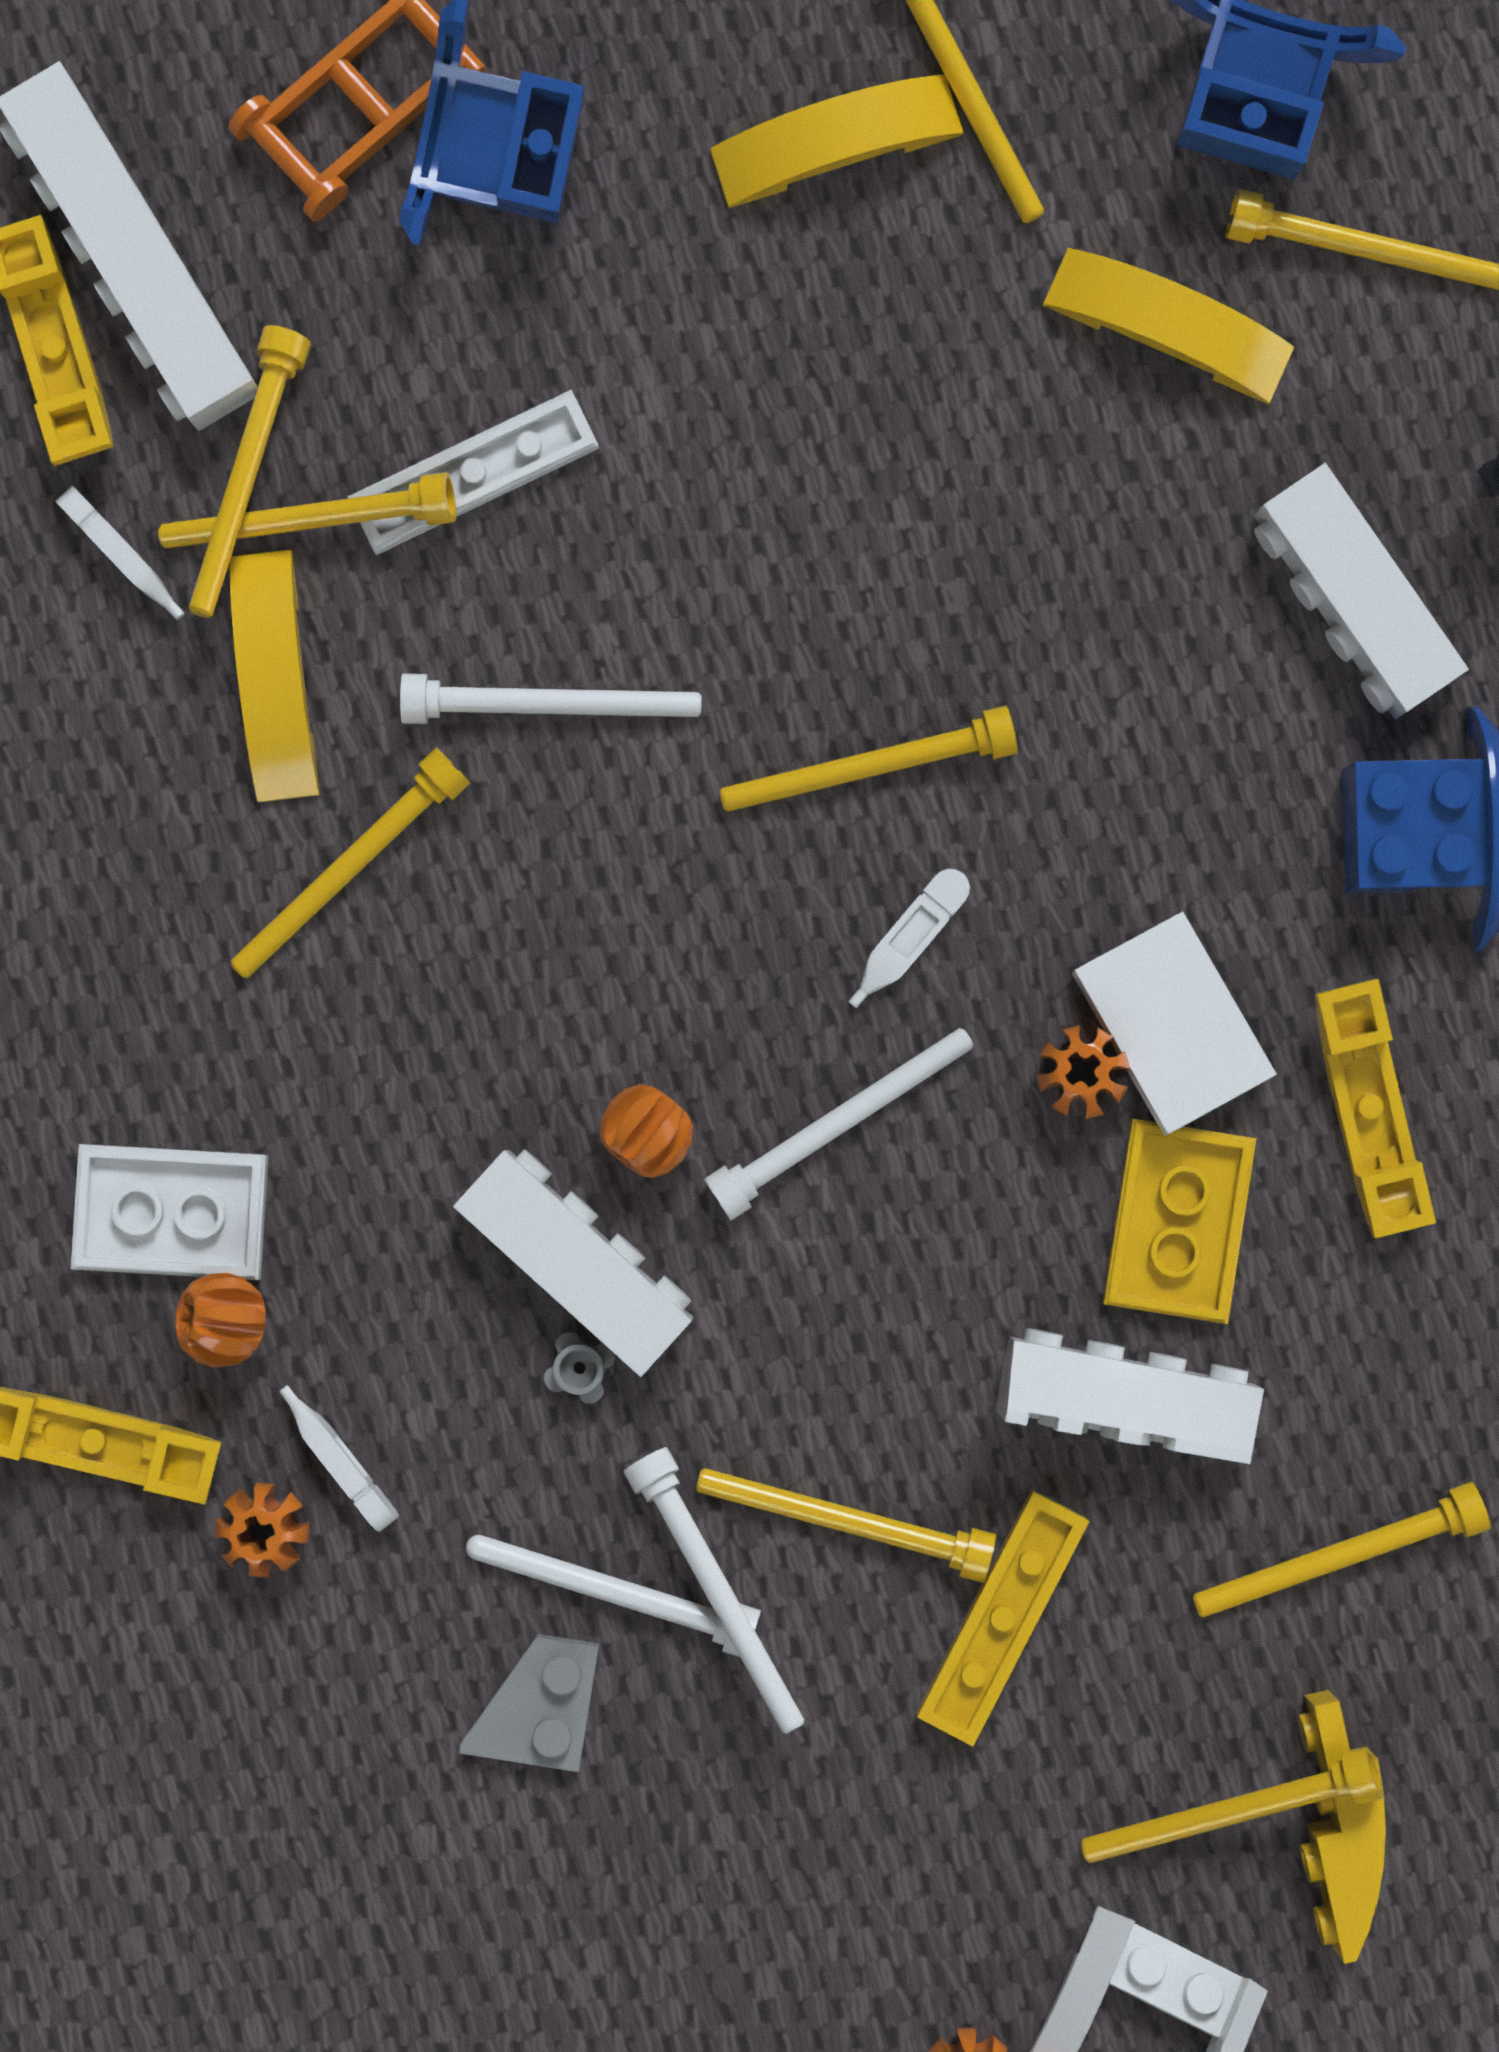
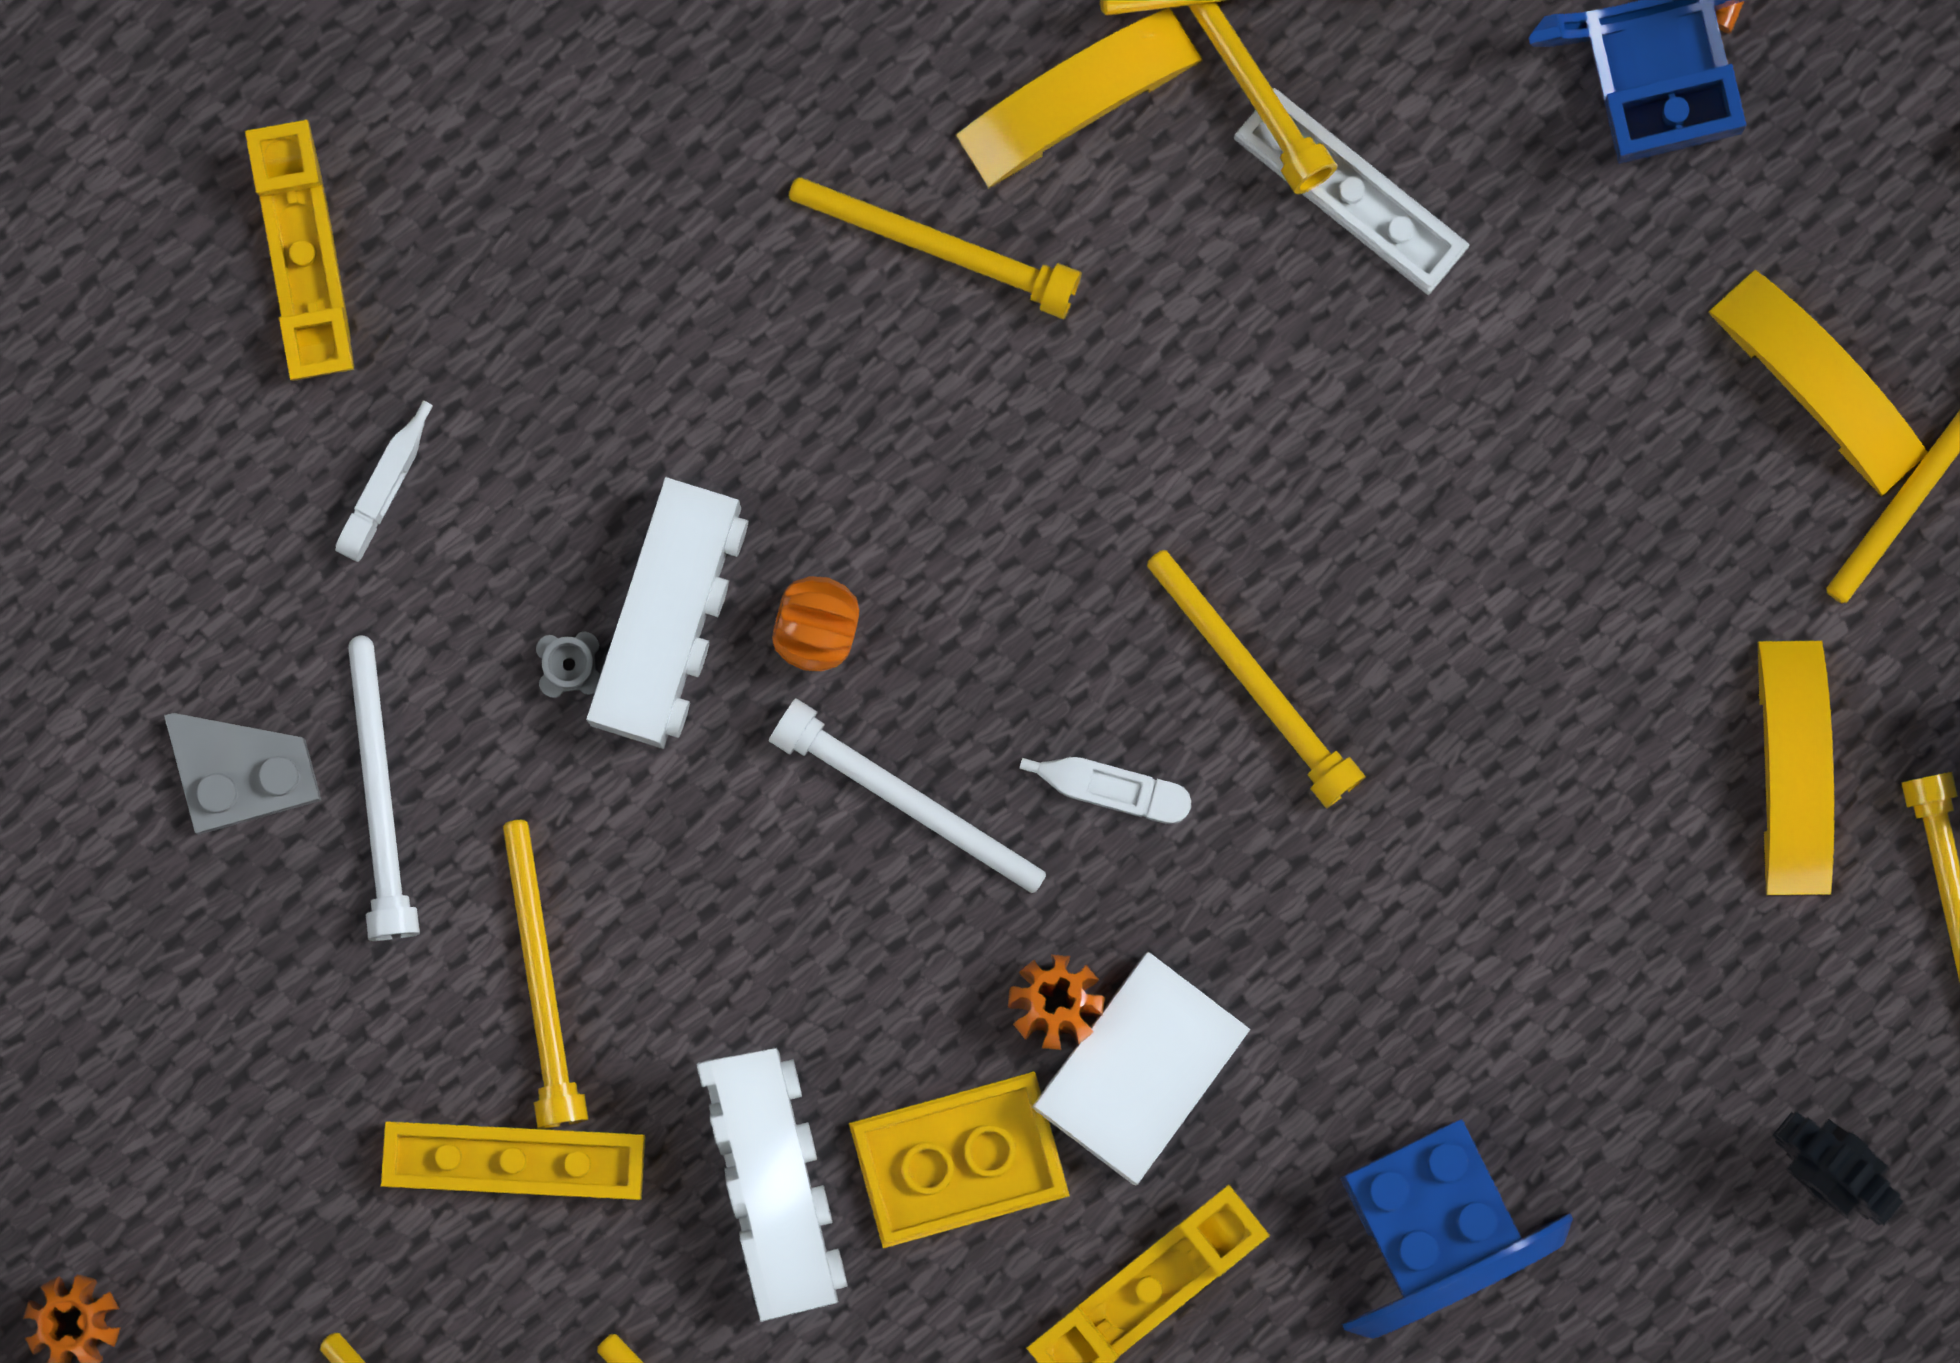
camera: 60 degrees right, 5 degrees down
(169, 1211) = (543, 227): white tile -> none
(220, 1320) = (465, 315): orange piece -> none
(256, 1549) = (280, 459): orange piece -> none
(427, 699) = (1122, 244): white piece -> none
(656, 1480) = (497, 780): white piece -> none
(1358, 592) = (1626, 1057): white brick -> none

